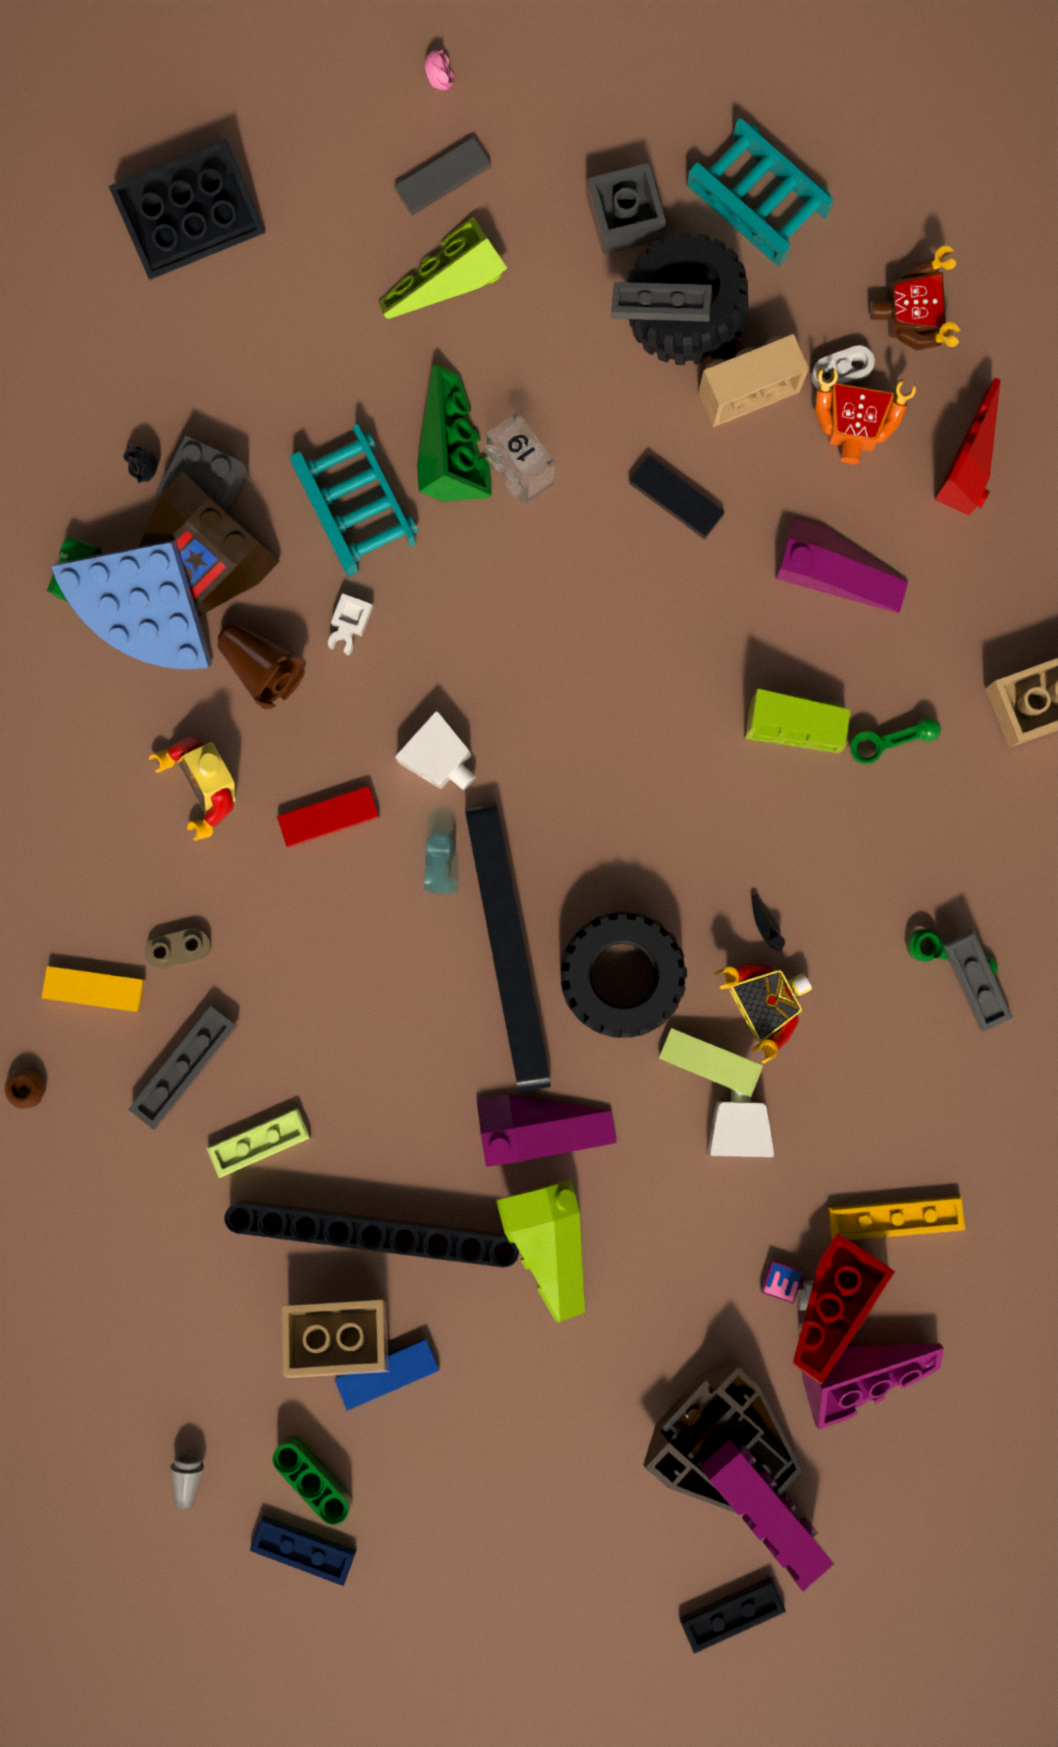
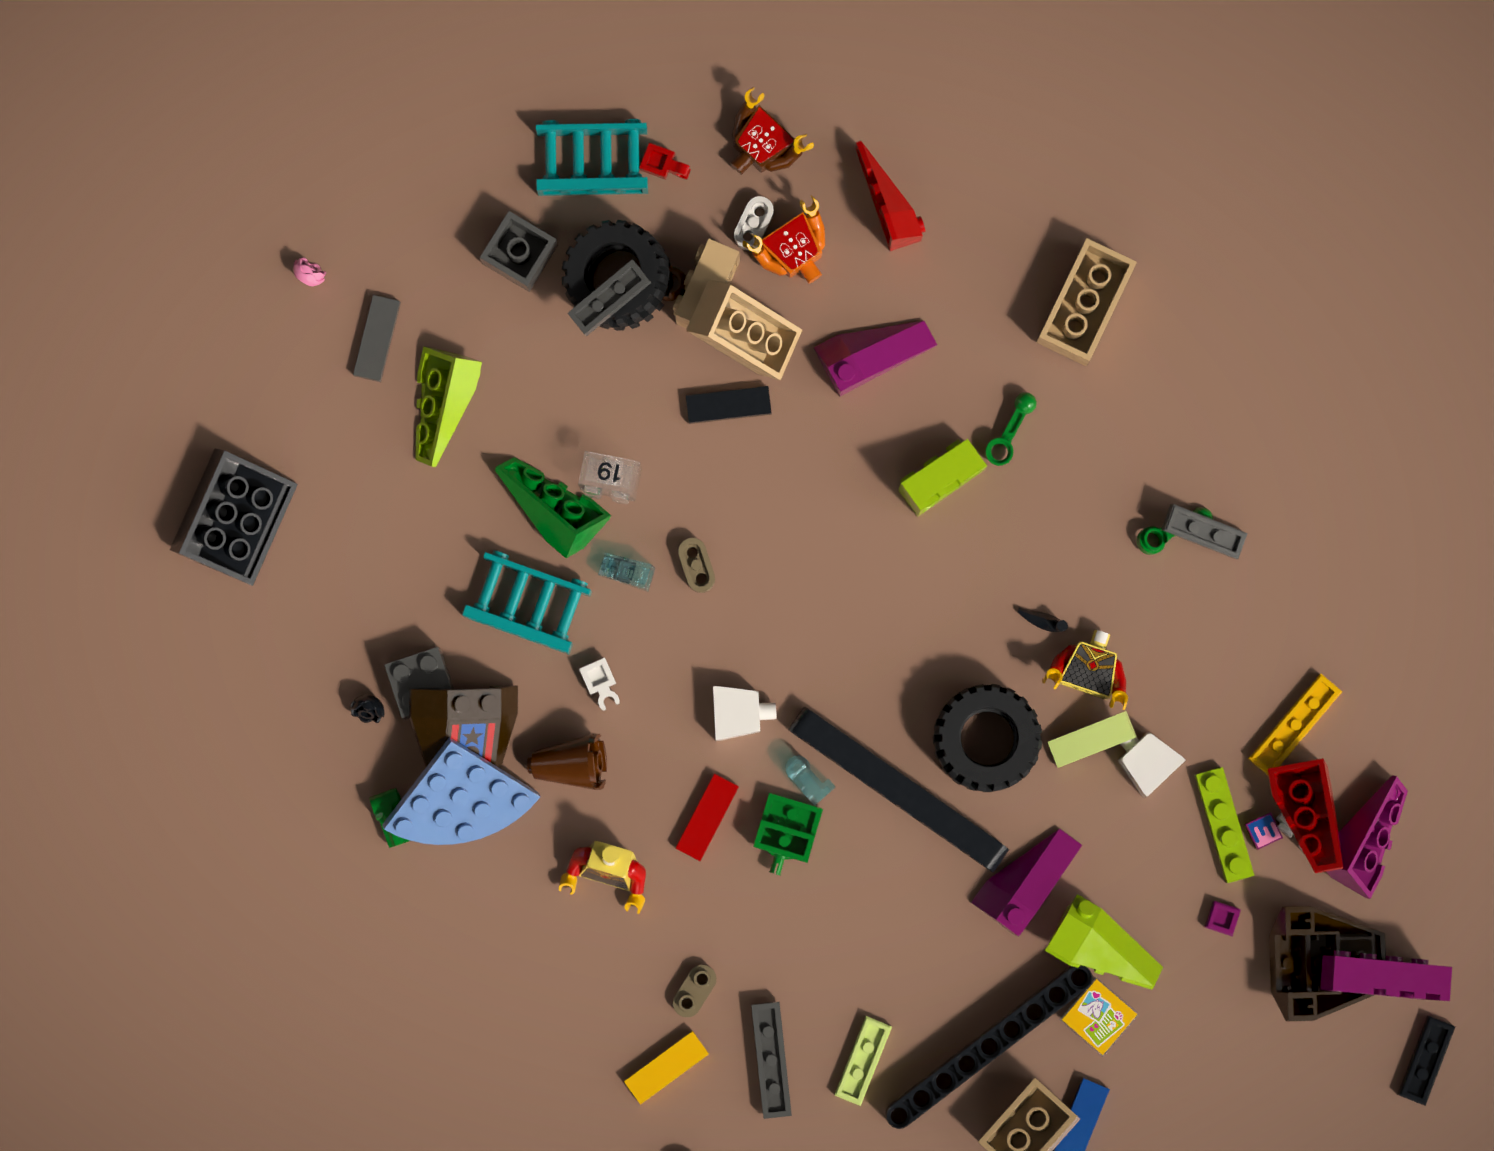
camera: 50 degrees left, 0 degrees up
(382, 890) = (787, 830): none -> green plate
(460, 553) = (627, 571): none -> clear light blue leg
(489, 1301) = (1099, 1017): none -> tile
(520, 602) = (697, 565): none -> dark tan plate
(675, 1321) = (1222, 918): none -> magenta tile
(749, 436) = (744, 329): none -> tan brick
(753, 1244) = (1224, 825): none -> lime plate
(814, 247) = (660, 161): none -> red plate

